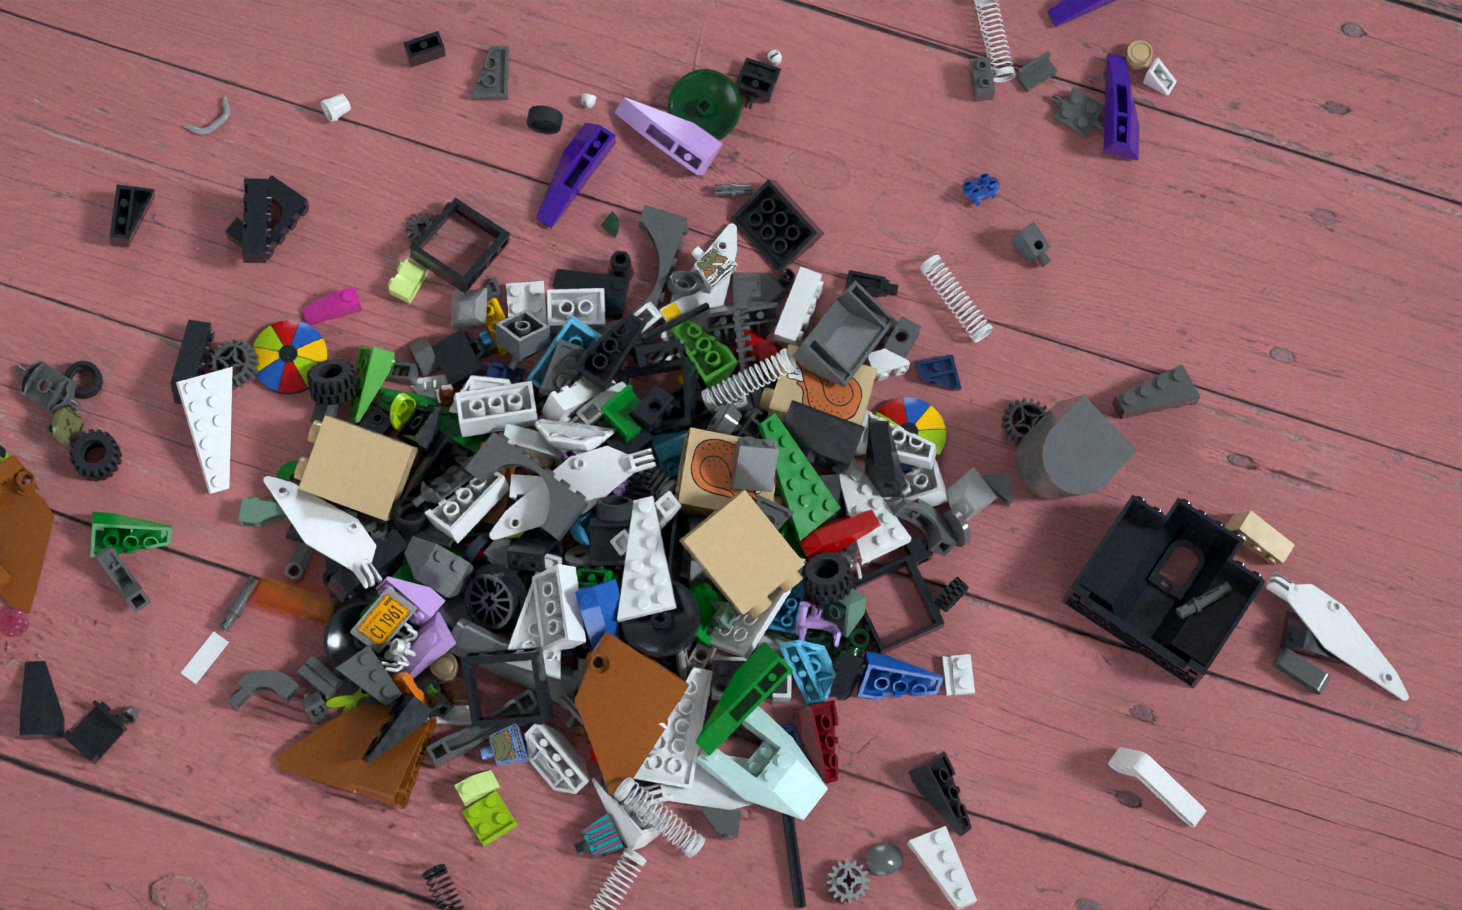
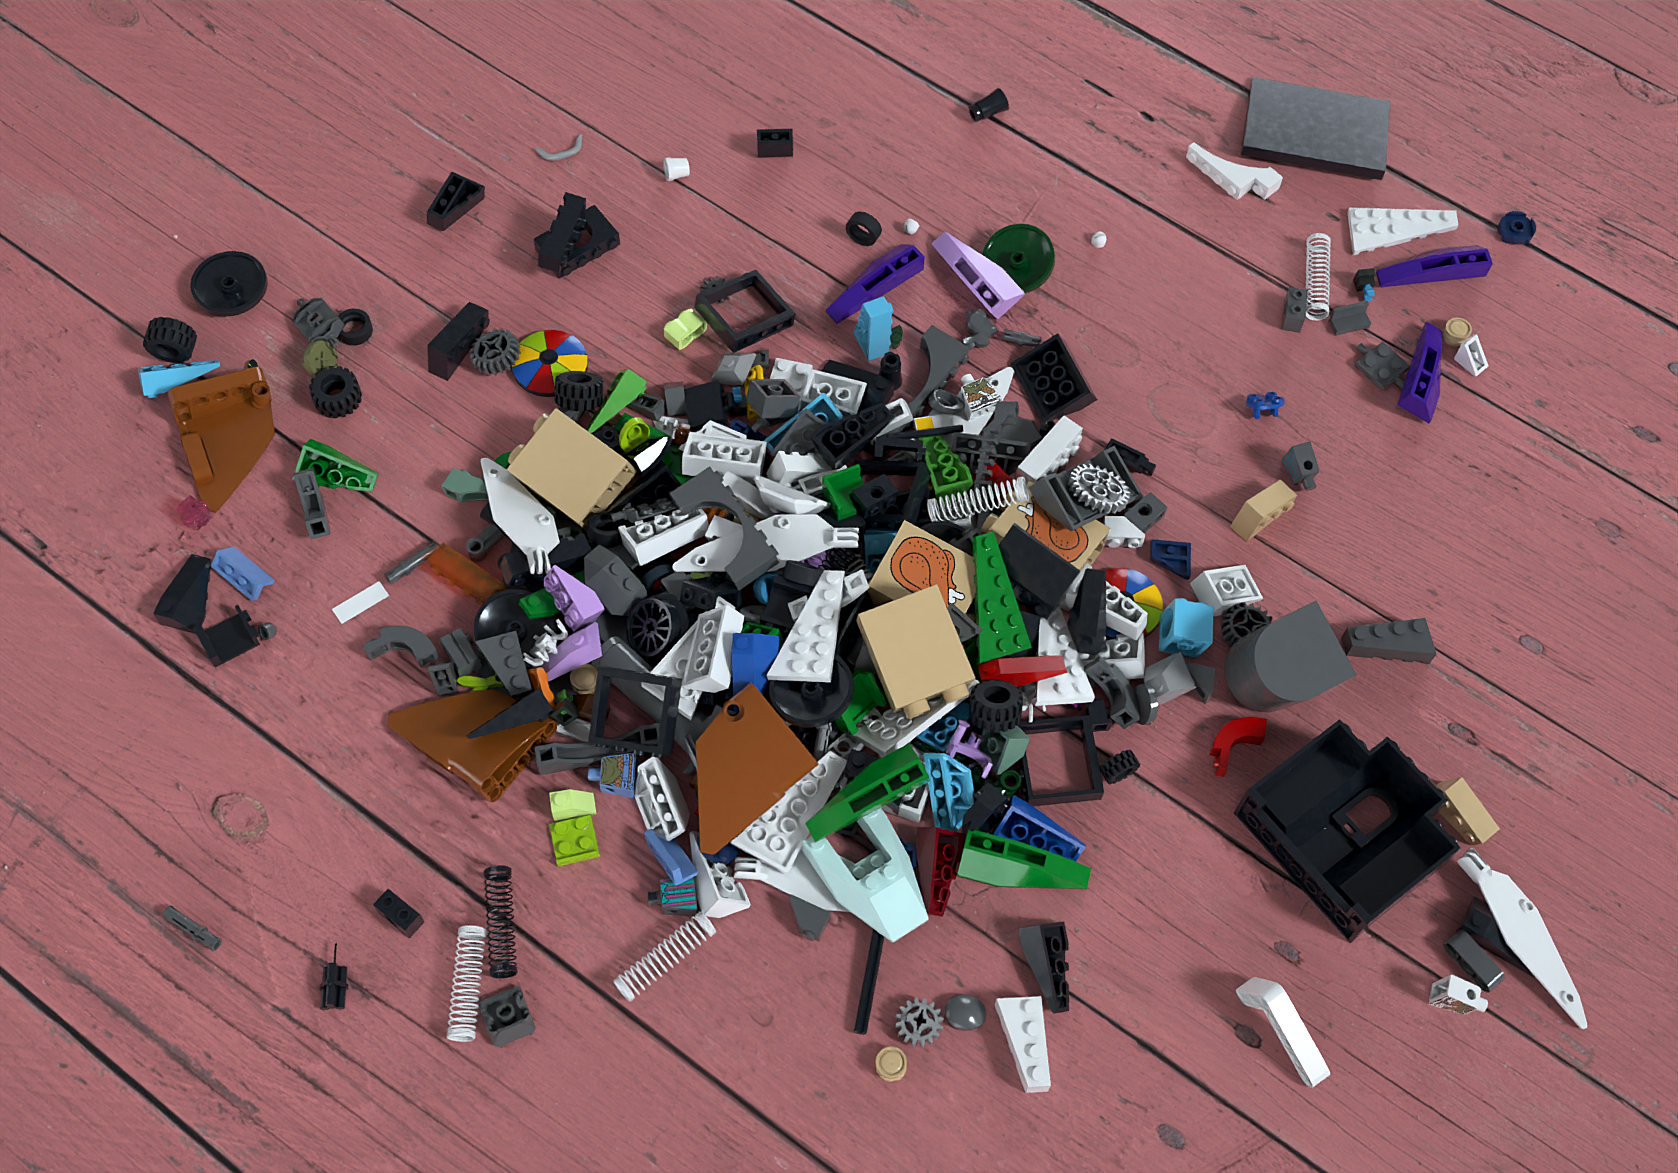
camera: 20 degrees right, 10 degrees down
(81, 665) = (241, 572): none -> medium blue panel
(208, 414) = (452, 383): white wing -> none
(333, 306) = (608, 331): dark pink slope -> none
(383, 620) = (538, 610): sticker -> none
(493, 79) = (831, 183): dark grey wing -> none
(584, 808) = (671, 858): none -> medium blue panel
(593, 230) = (874, 328): none -> medium azure wedge
(620, 794) = (717, 847): white piece -> none
(690, 192) = (979, 328): none -> dark grey animal
(724, 614) = (878, 711): sand green panel -> none
(725, 419) = (943, 526): dark grey cone -> none
(754, 464) = (957, 569): brick -> none
(757, 81) = (1075, 253): black plate -> none
(855, 331) = (1098, 488): none -> light grey gear
(889, 713) = (1018, 865): none -> green wedge
(932, 263) = (1221, 537): white piece -> none
(958, 675) = (1102, 850): white plate -> none
(972, 443) = (1186, 628): none -> medium azure brick
(997, 390) = (1226, 588): none -> white slope
(1009, 299) = (1263, 509): none -> tan wedge
(1040, 27) = (1365, 282): none -> pearl dark grey piece
(1050, 522) = (1240, 730): none -> red arch
(1202, 601) = (1377, 854): dark grey pin -> none
(1294, 707) = (1457, 995): none -> white torso

